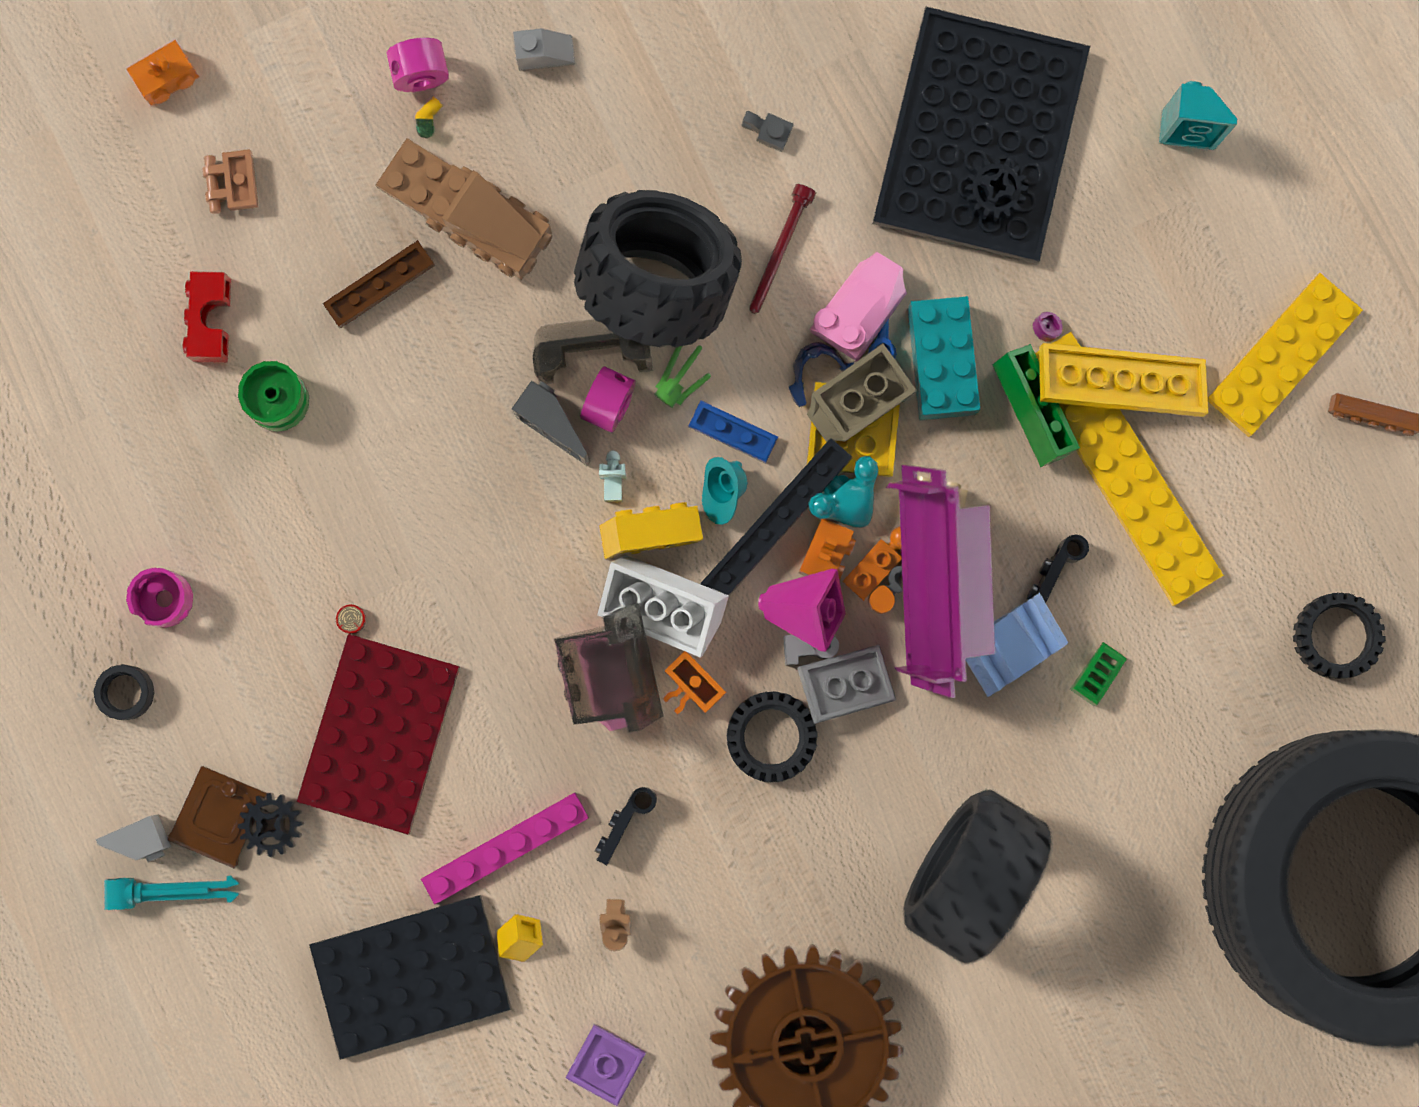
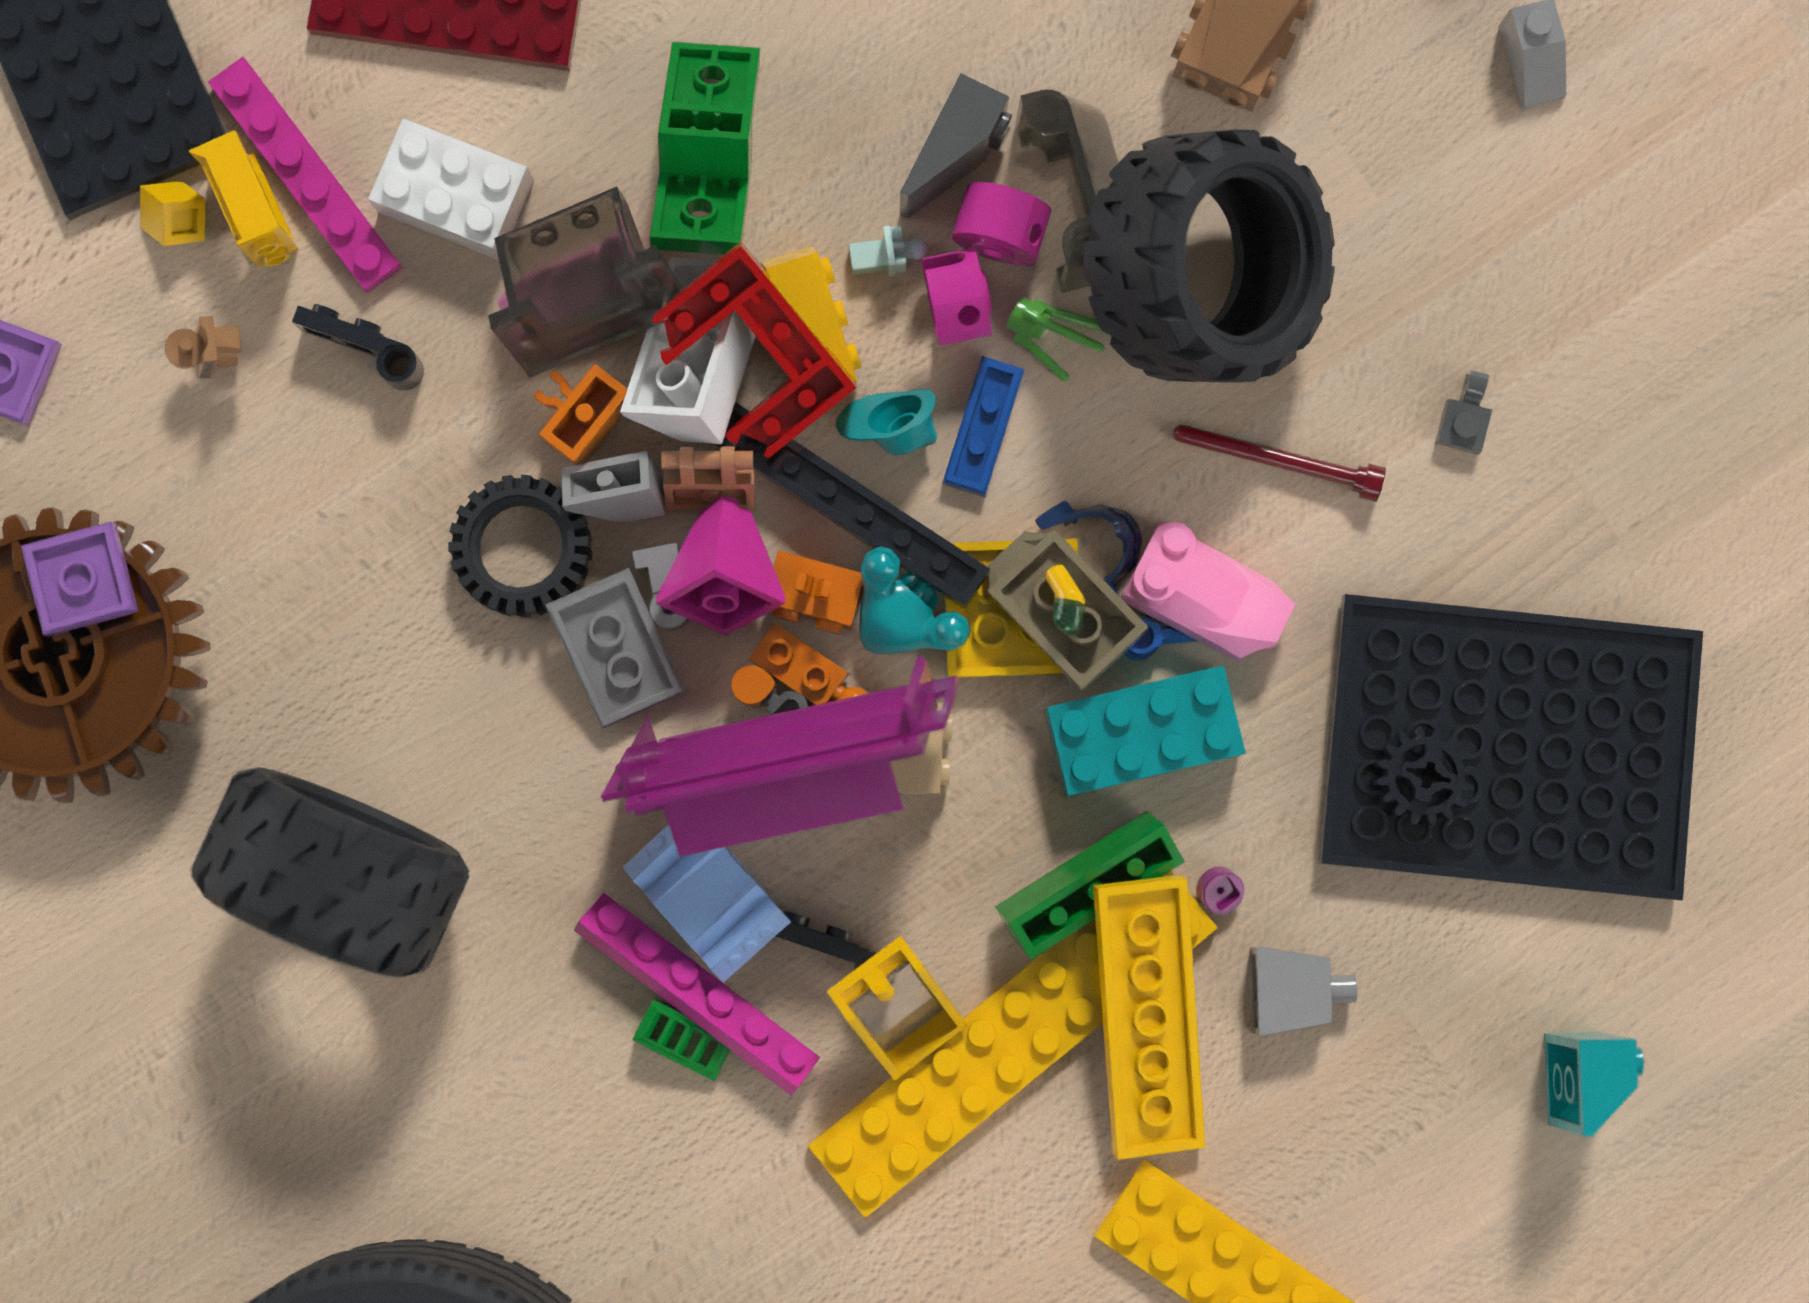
camera: 80 degrees right, 0 degrees up
(521, 885) = (246, 200): none -> yellow window
(530, 581) = (705, 148): none -> green bracket
(531, 751) = (450, 188): none -> white piece
(632, 566) = (743, 286): none -> red wedge
(653, 434) = (957, 296): none -> dark pink piece
(744, 670) = (615, 488): none -> light grey slope
(745, 616) = (698, 488): none -> nougat plate
(763, 1019) = (79, 578): none -> medium lavender tile
(860, 389) = (1068, 600): none -> arm
(1071, 661) = (697, 993): none -> dark pink plate
(1099, 535) = (896, 1008): none -> yellow window
(1116, 290) = (1294, 990): none -> light grey torso

